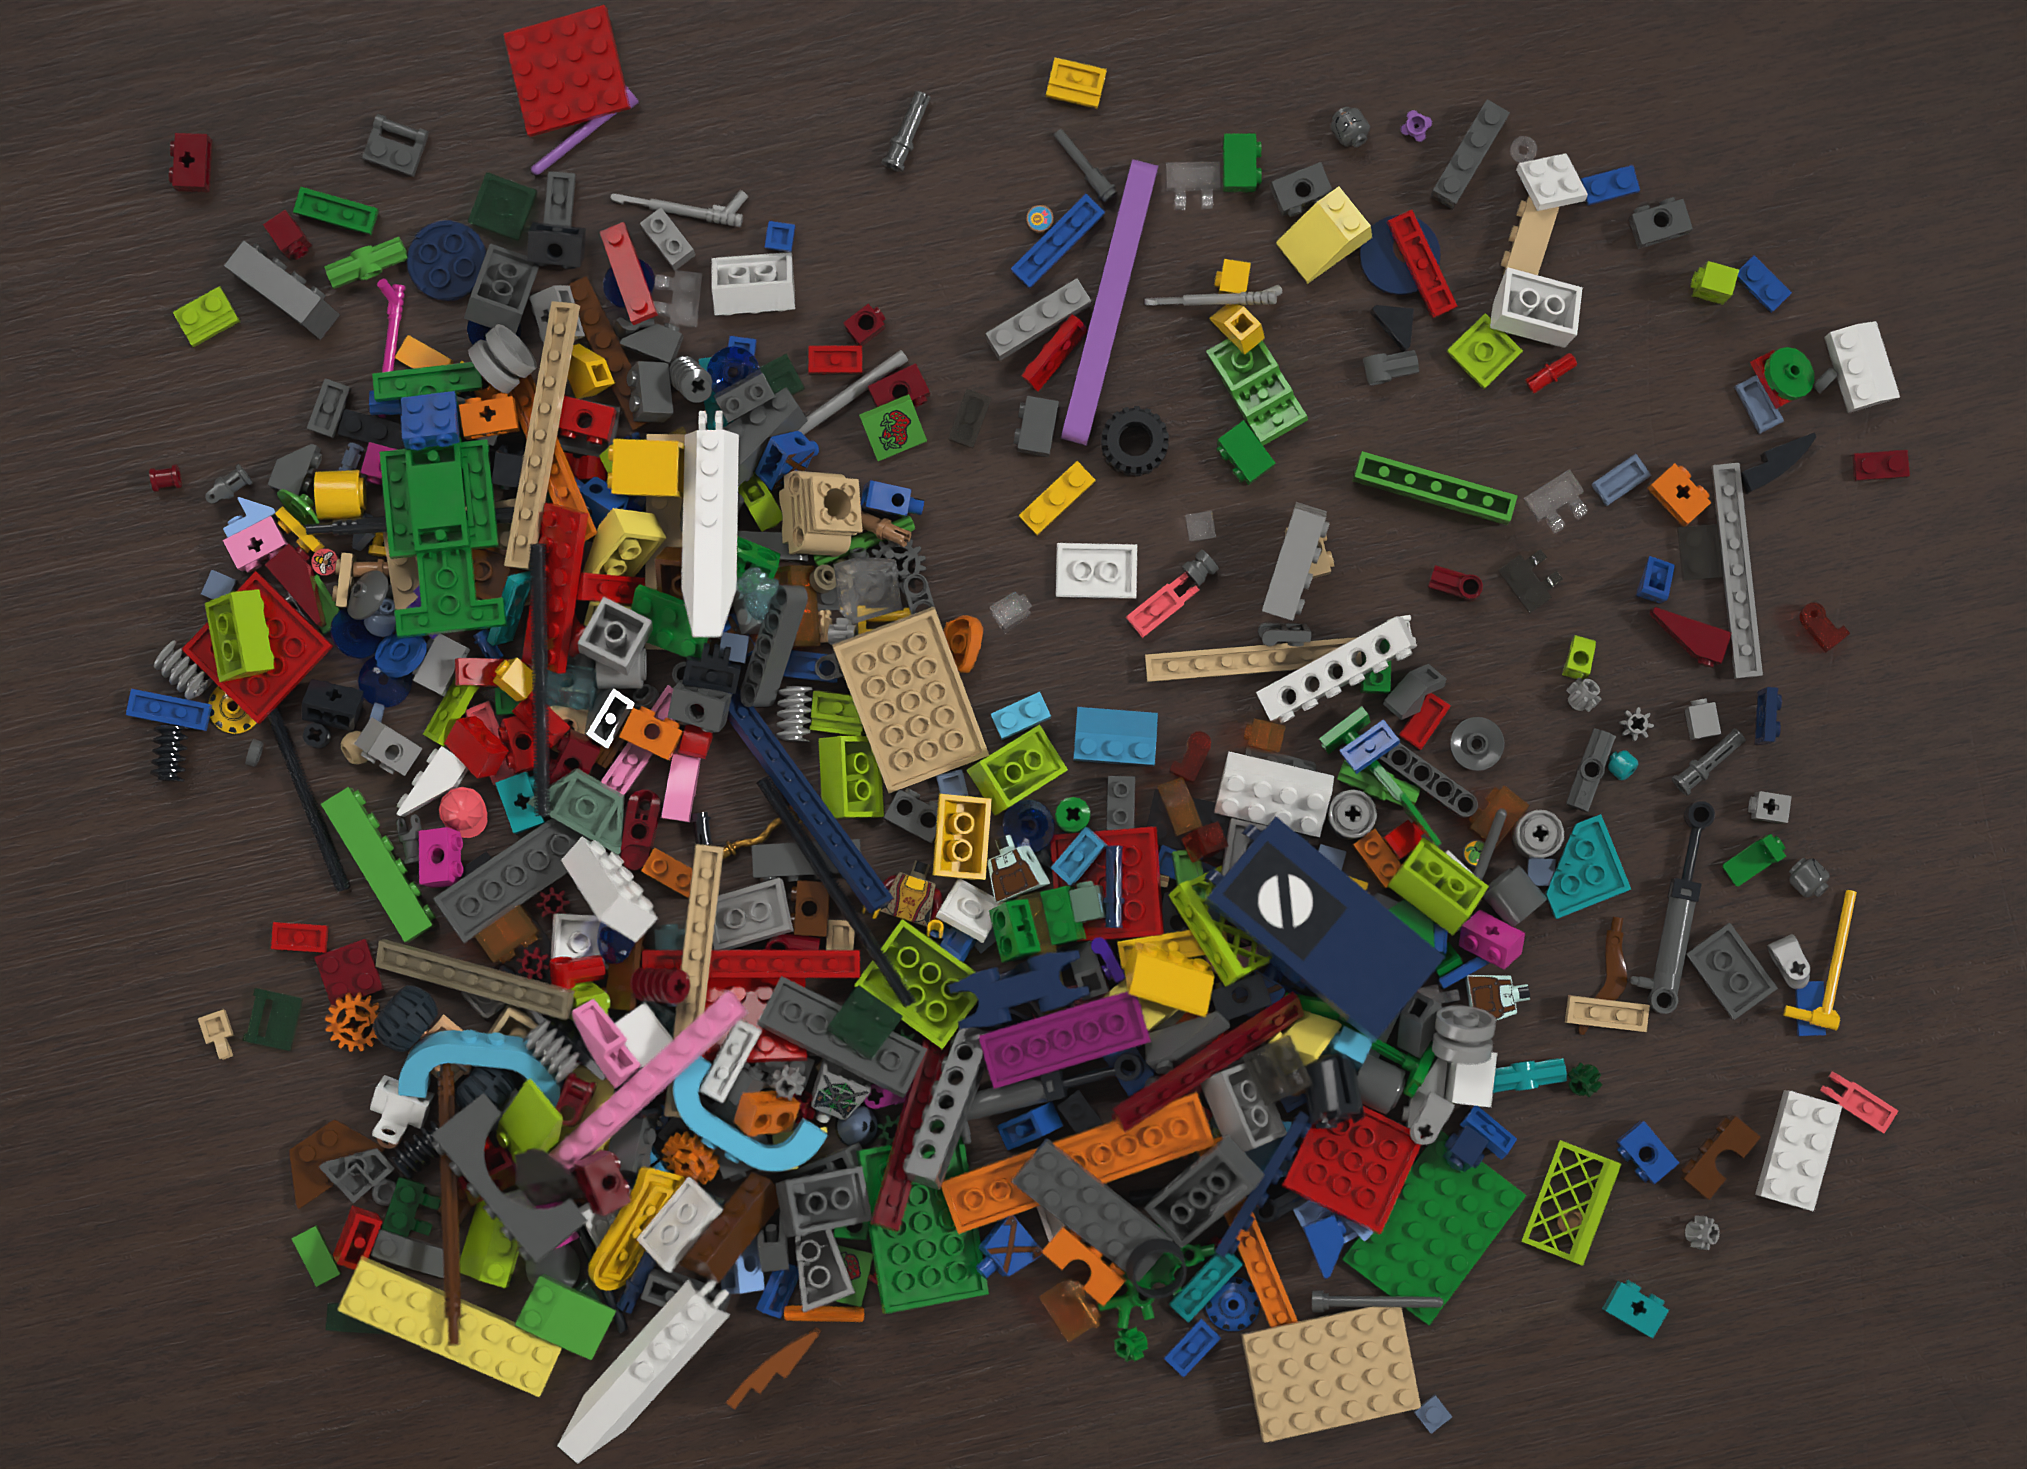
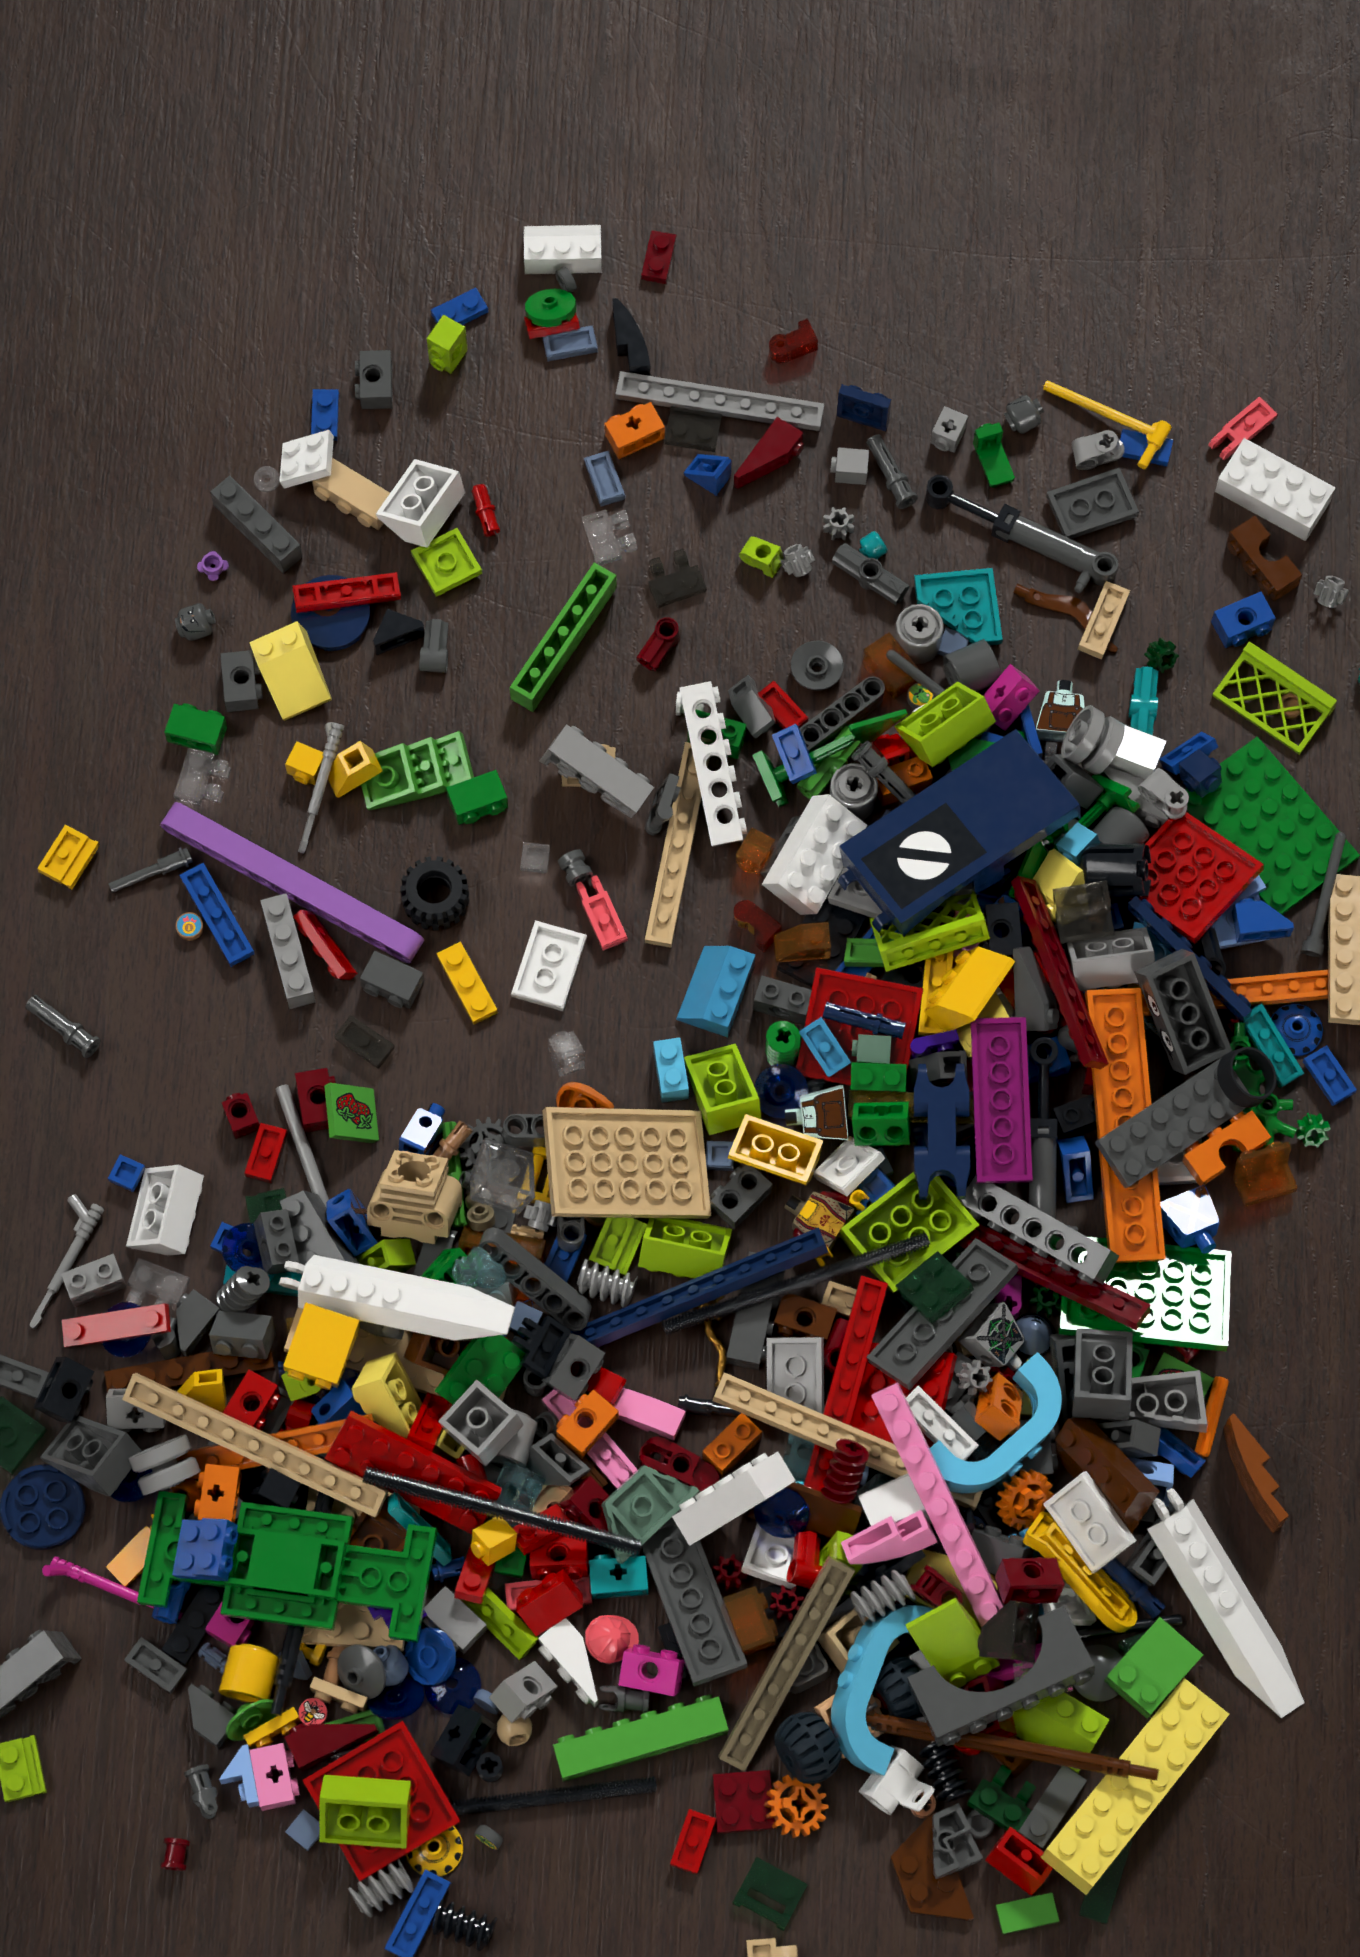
camera: 75 degrees left, 15 degrees down
(366, 262) = (18, 1587): bright green piece -> none
(1205, 842) = (843, 926): clear red brick -> none
(1373, 833) = (878, 768): none -> dark grey pin

